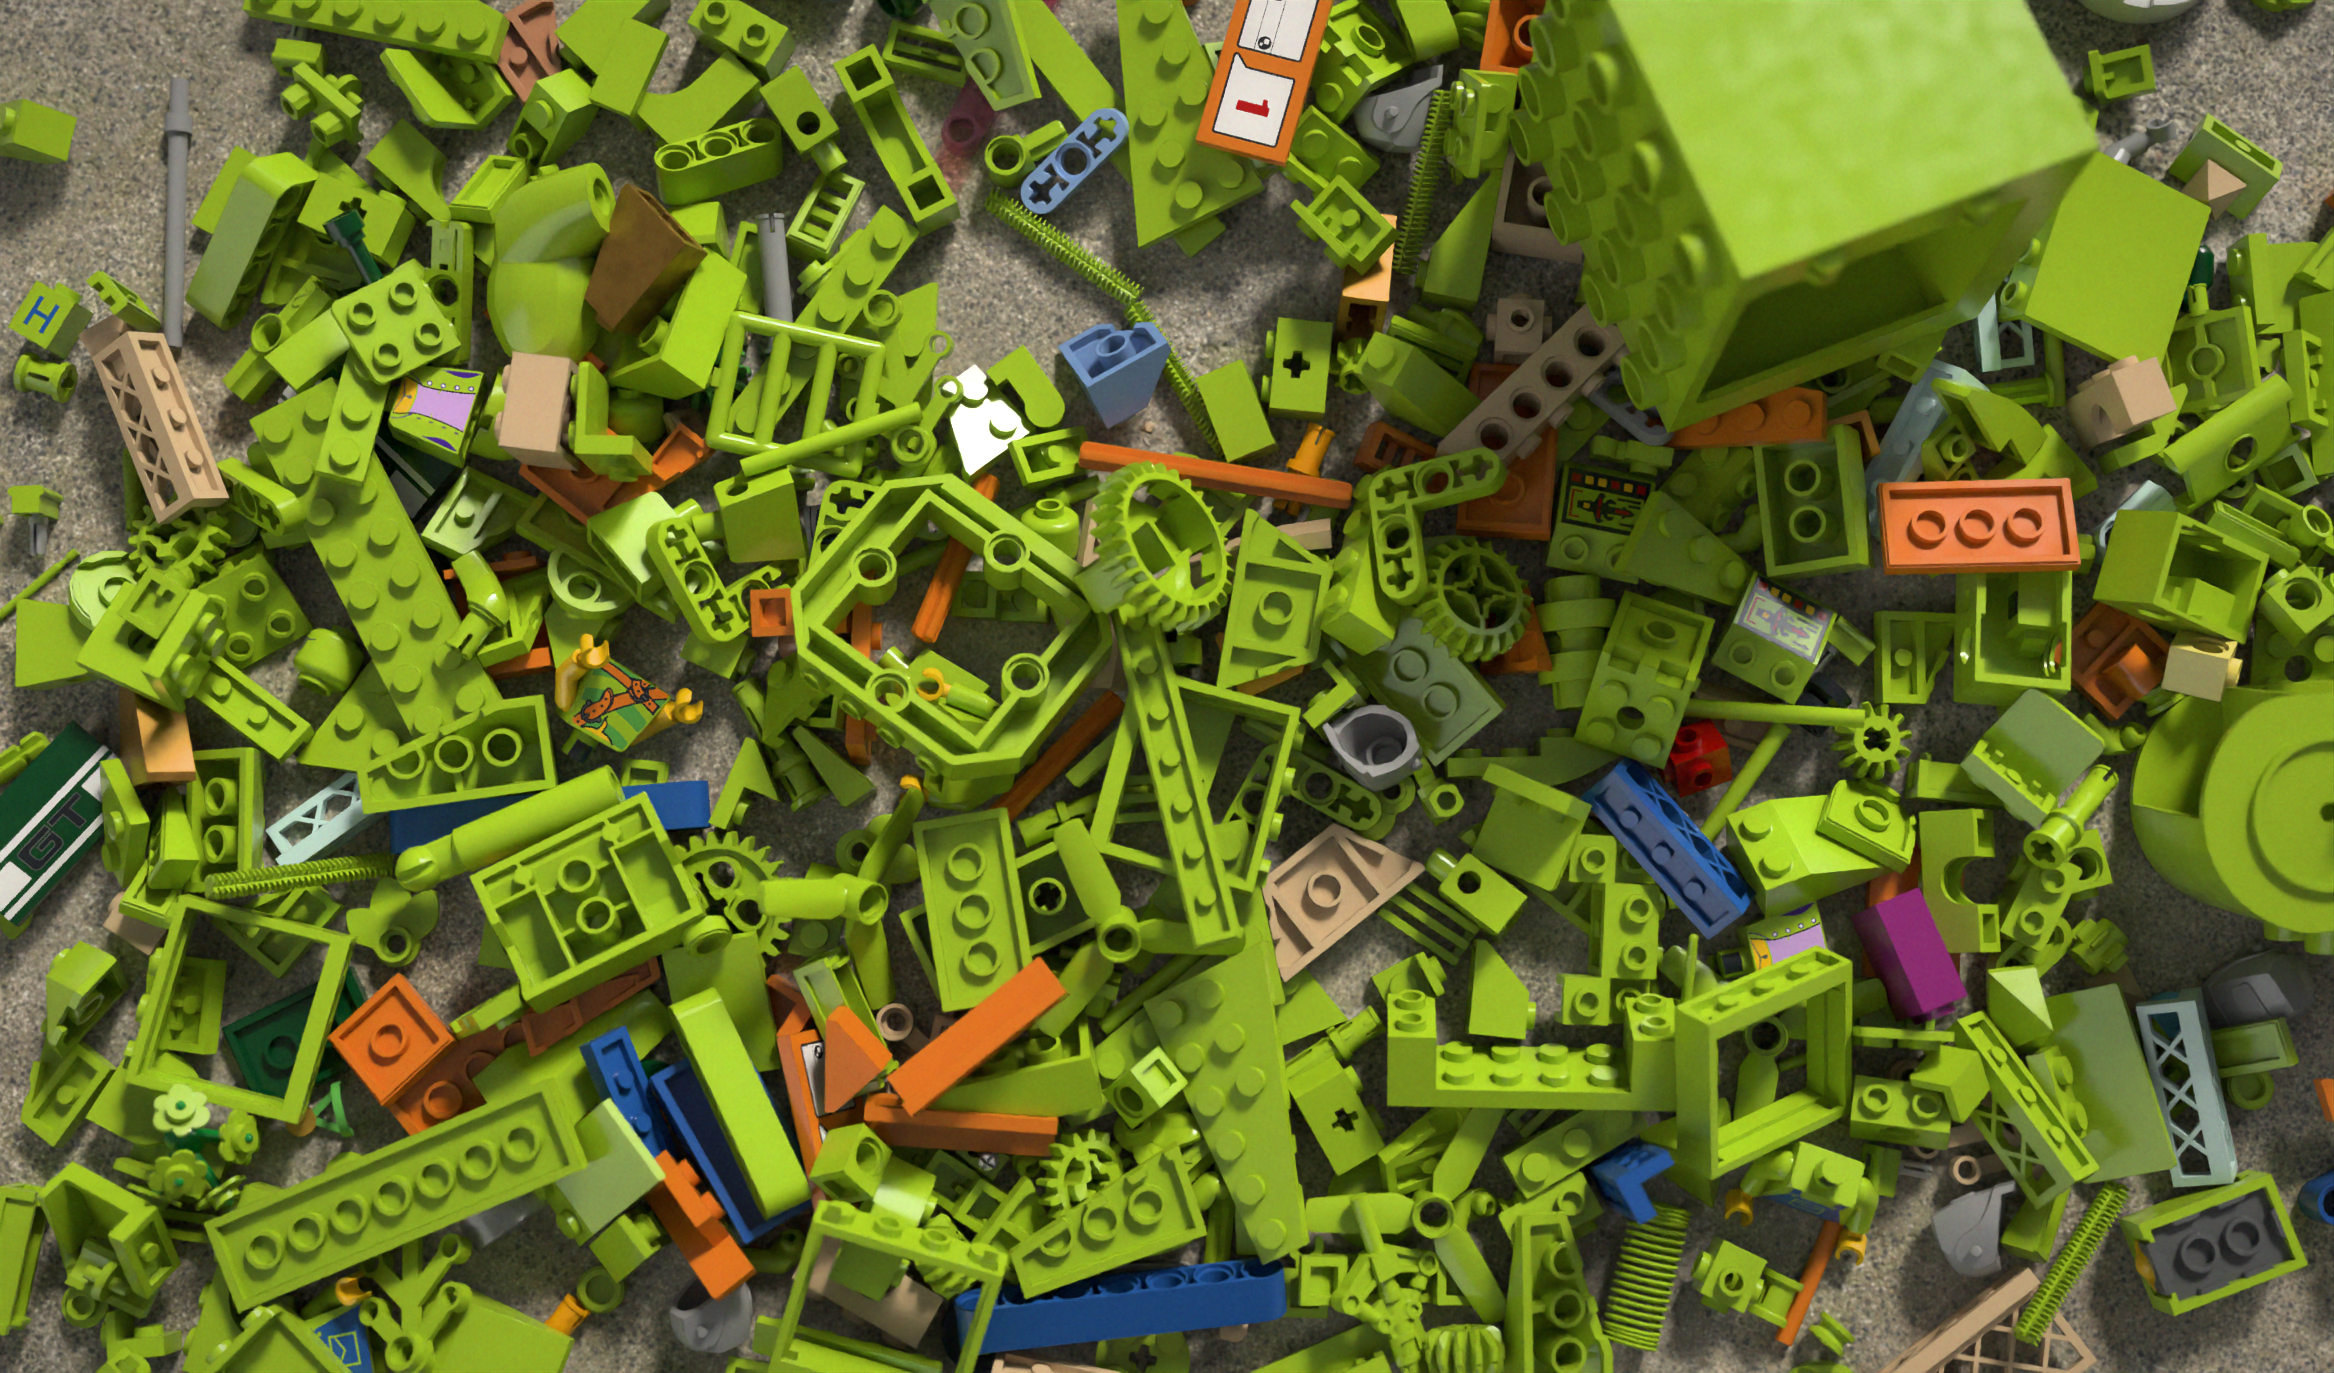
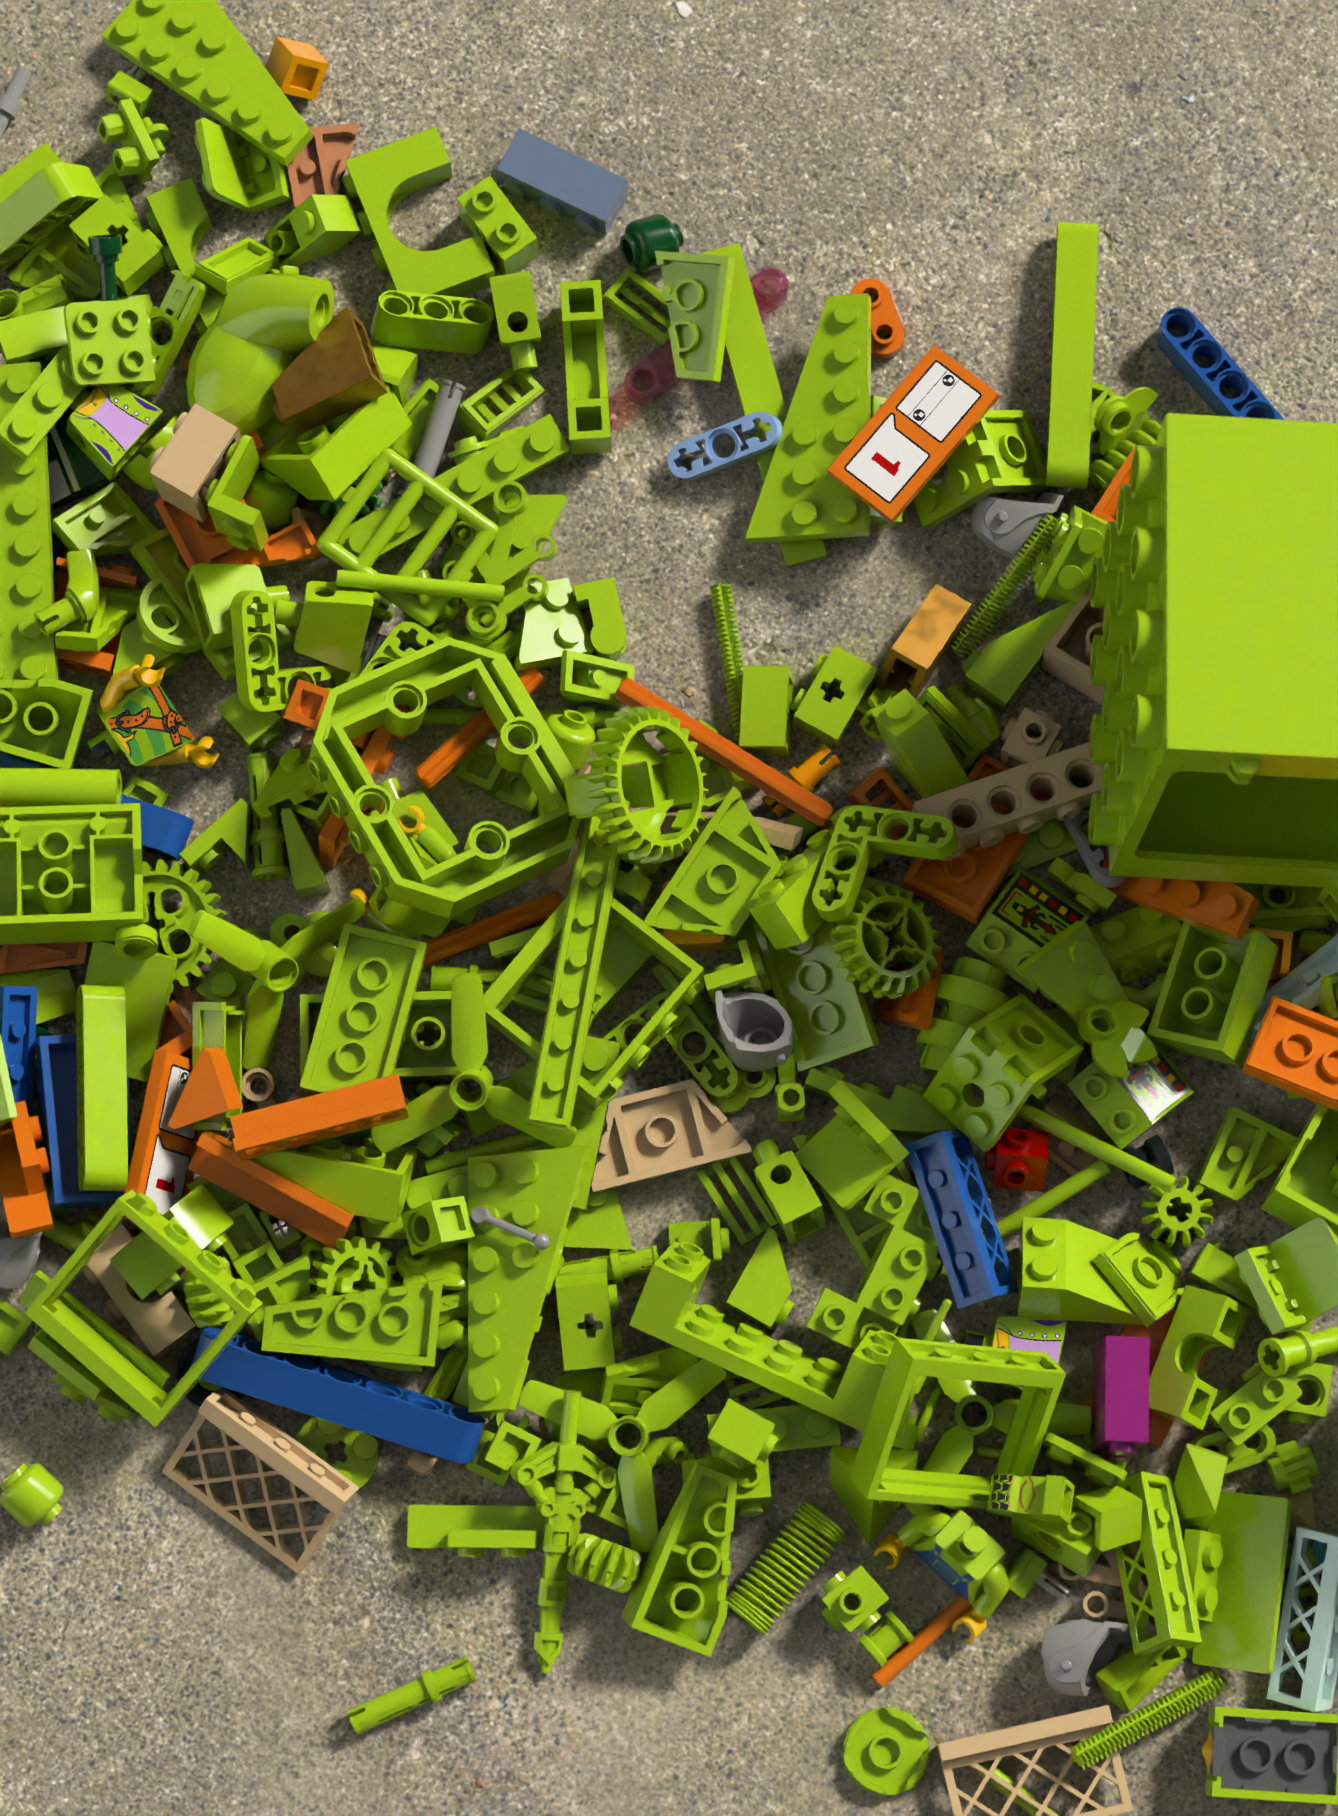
camera: 25 degrees right, 5 degrees down
(629, 68) = (392, 215): lime tile -> none
(851, 1163) = (170, 1175): lime brick -> none
(1026, 149) = (691, 420): lime axle -> none
(1062, 248) = (683, 513): lime axle -> none
(1117, 368) = (683, 630): medium blue slope -> none
(1186, 1058) = (482, 1216): none -> light grey hinge
(1323, 152) = (933, 535): lime bracket -> none
(1347, 224) = (921, 593): lime bracket -> none
(1556, 1172) = (742, 1436): none -> lime brick
(1621, 1172) = (793, 1461): blue fence -> none
(1747, 593) = (1122, 1038): none -> lime plate
(1831, 1333) = (920, 1690): lime bush -> none
(1848, 642) = (1190, 1116): lime piece -> none
(1868, 1100) = (1031, 1497): none -> lime leg

